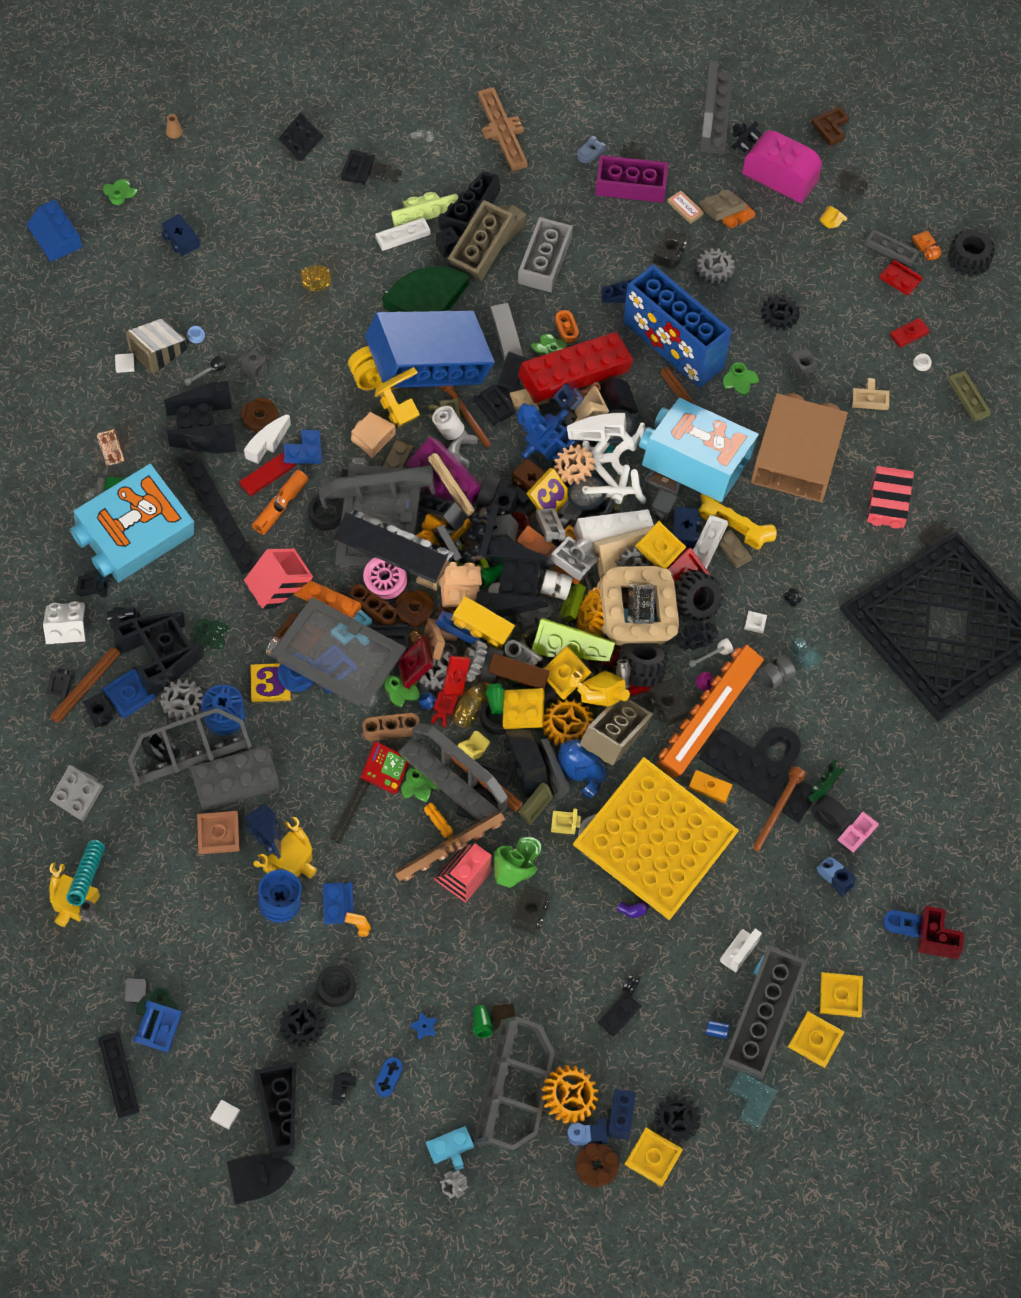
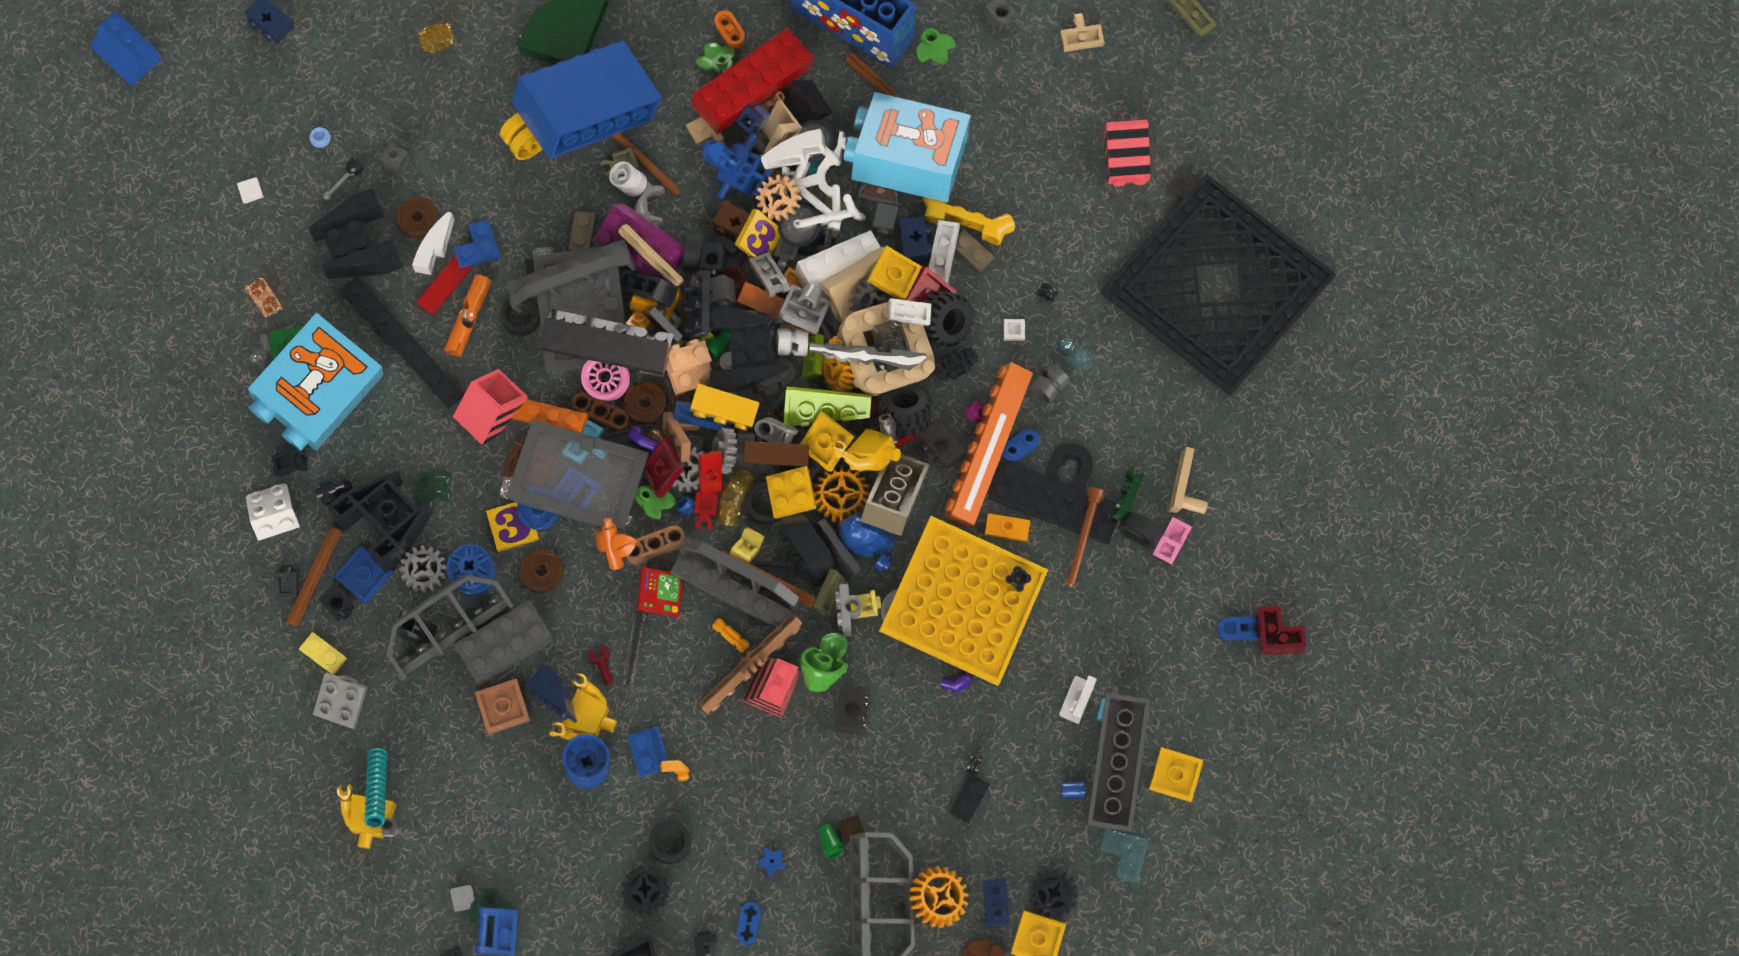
camera: 10 degrees left, 10 degrees up
(73, 750) = (322, 653): none -> light yellow plate
(155, 344) = (279, 161): dark tan slope -> none
(282, 716) = (533, 562): none -> reddish brown plate
(317, 815) = (601, 662): none -> dark red bar
(355, 716) = (614, 544): none -> orange plant
(372, 433) = (547, 210): light nougat torso -> none
(399, 631) = (641, 440): none -> dark purple arm
(401, 413) = (575, 180): yellow piece -> none
(419, 786) = (701, 603): bright green plate -> none
(494, 405) = (672, 143): black plate -> none
(495, 697) = (758, 486): green cone -> none
(505, 330) = (668, 60): light grey slope -> none
(509, 374) = (681, 98): black plate -> none
(545, 821) = (844, 617): none -> light grey plate
(588, 1134) = (964, 934): leg -> none
(646, 612) = (898, 358): none -> dark grey sword
(666, 578) = (909, 312): none -> white plate
(710, 824) = (1022, 574): none -> black plate
(724, 647) = (987, 368): hinge -> none
(739, 719) = (1021, 445): none -> blue plate
(799, 447) = (1018, 115): medium nougat brick -> none
(836, 875) = (1160, 594): leg -> none
(841, 994) = (1191, 720): yellow tile -> none
(871, 797) = (1178, 497): none -> tan piece

